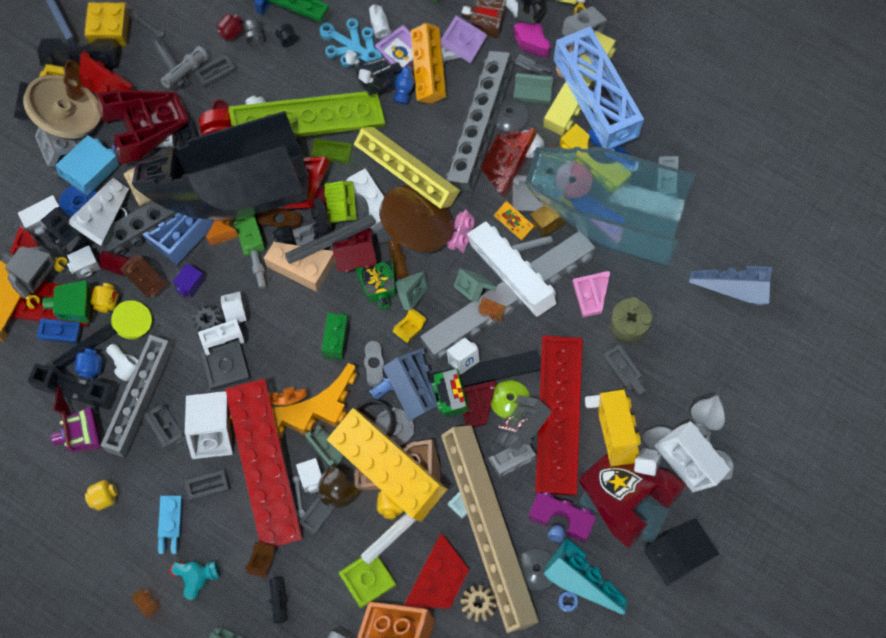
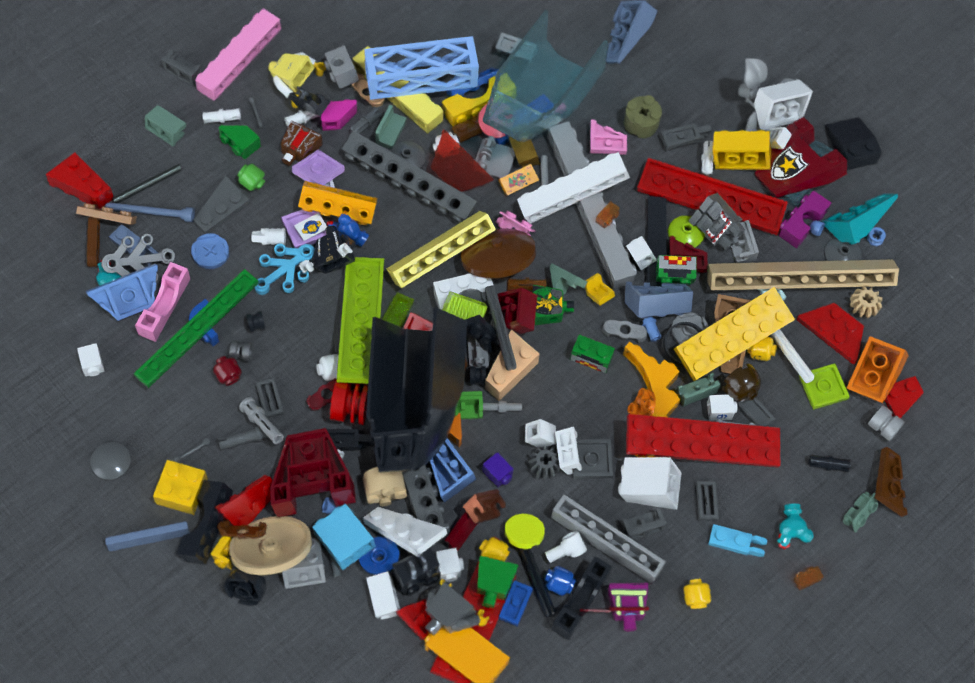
camera: 80 degrees left, 5 degrees down
(260, 559) = (790, 467): reddish brown bracket -> none
(471, 284) = (575, 226): sand green panel -> none

